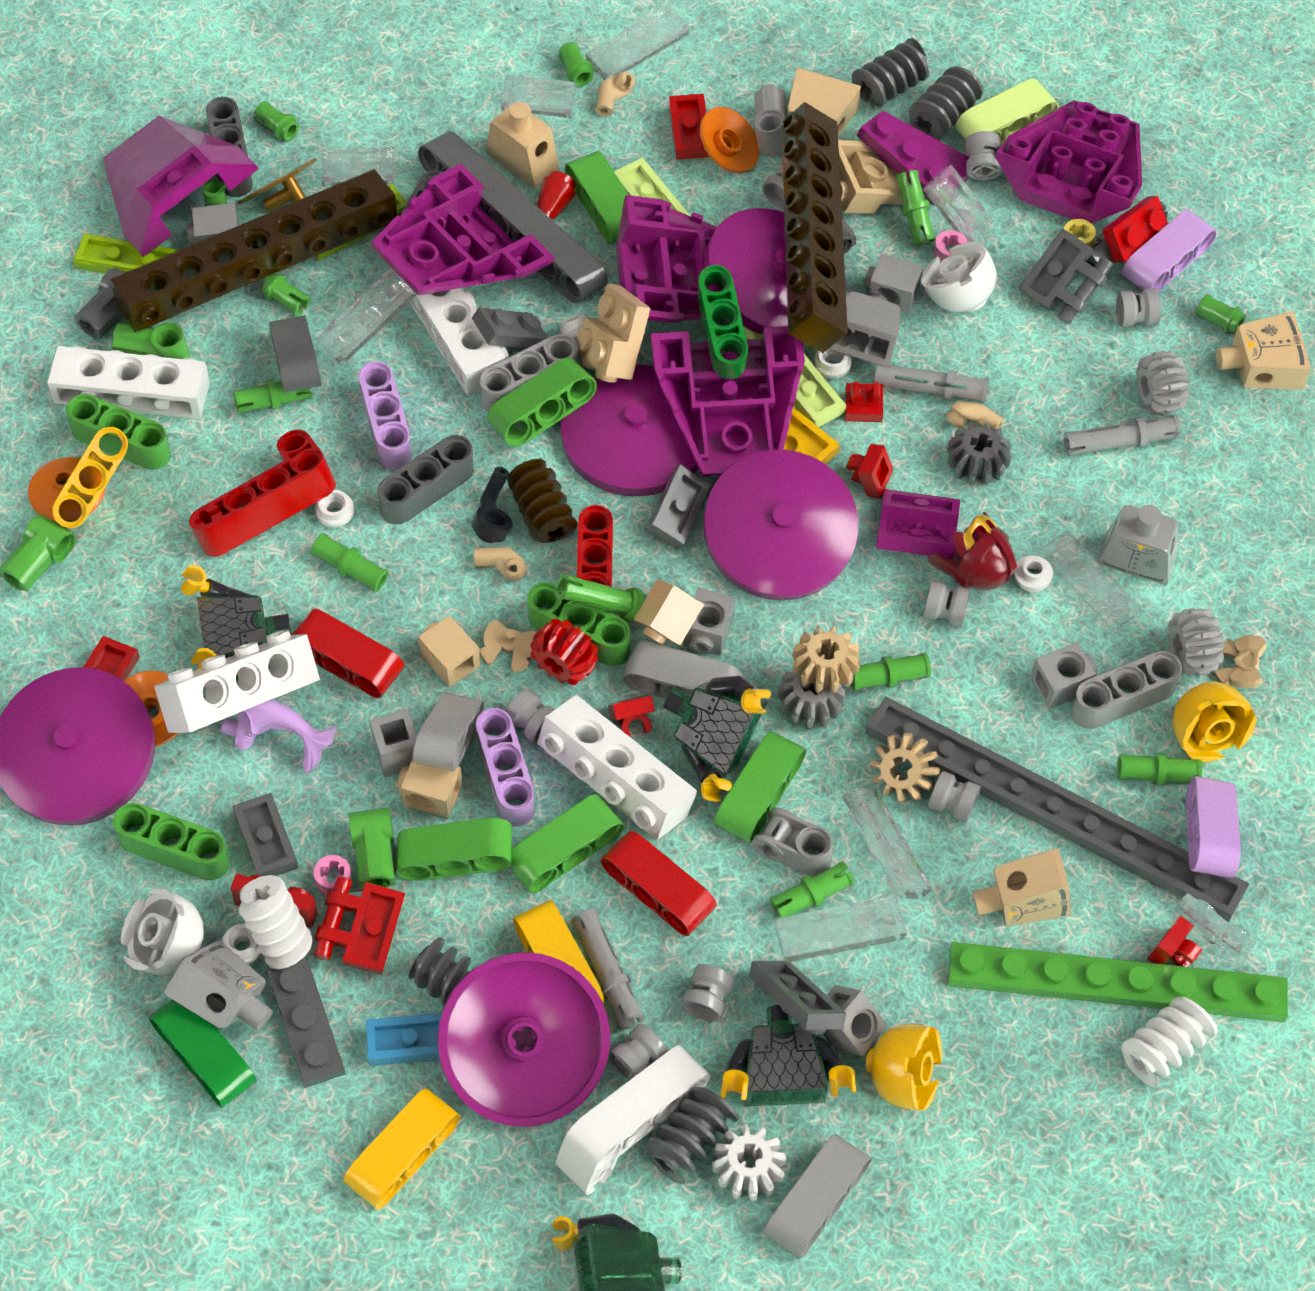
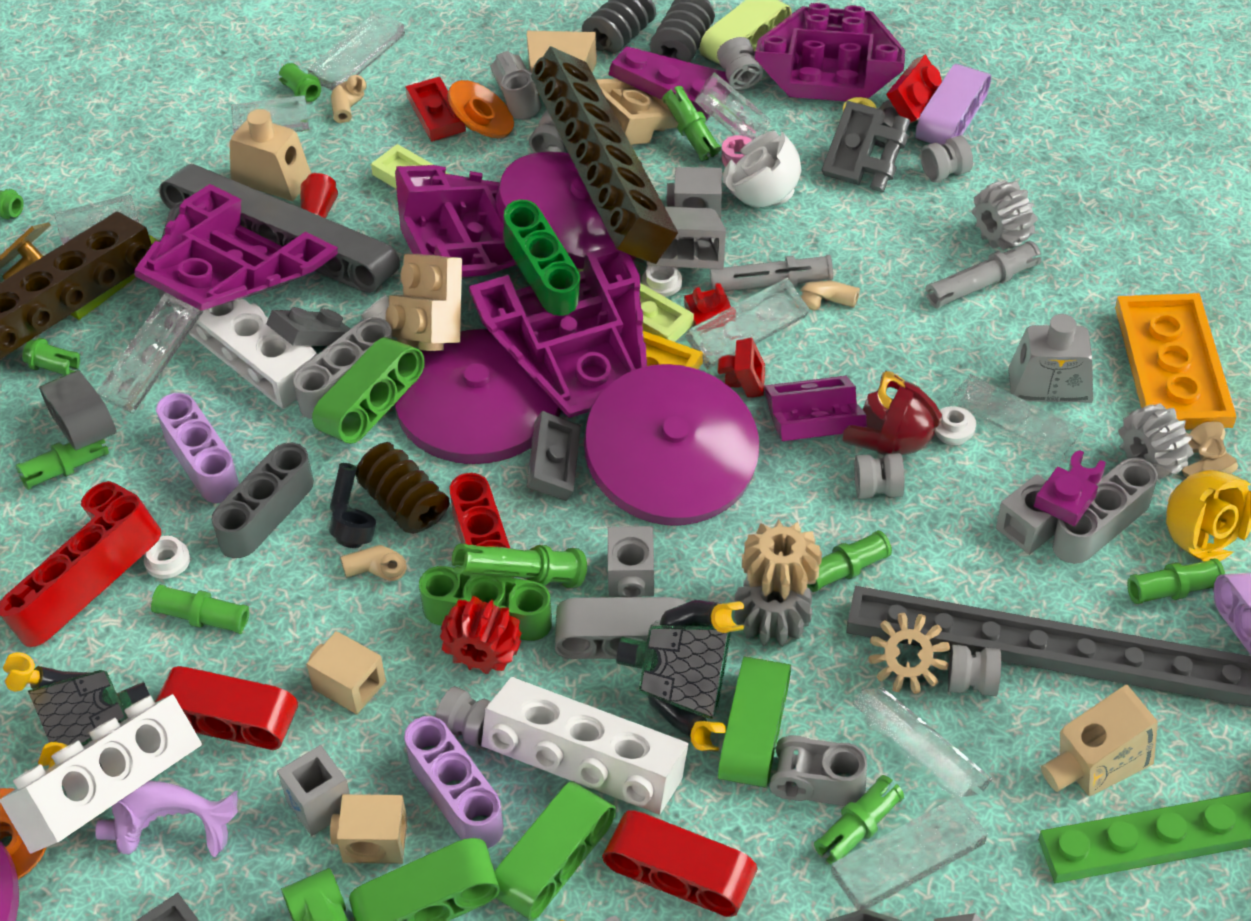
camera: 15 degrees left, 10 degrees down
(447, 732) = (374, 759): light grey beam -> none
(511, 641) = (425, 644): tan piece -> none
(599, 192) = (365, 186): bright green beam -> none
(632, 709) = (581, 677): red tile -> none
(667, 613) = (586, 560): brick -> none
(891, 425) = (754, 317): none -> clear plate
(979, 453) = (849, 324): flat silver gear -> none
(1097, 668) = (1071, 491): none -> magenta plate
(1220, 314) = (1028, 146): bright green pin -> none
(1255, 566) = (1175, 357): none -> light orange plate
(1268, 354) = (1092, 168): tan torso -> none

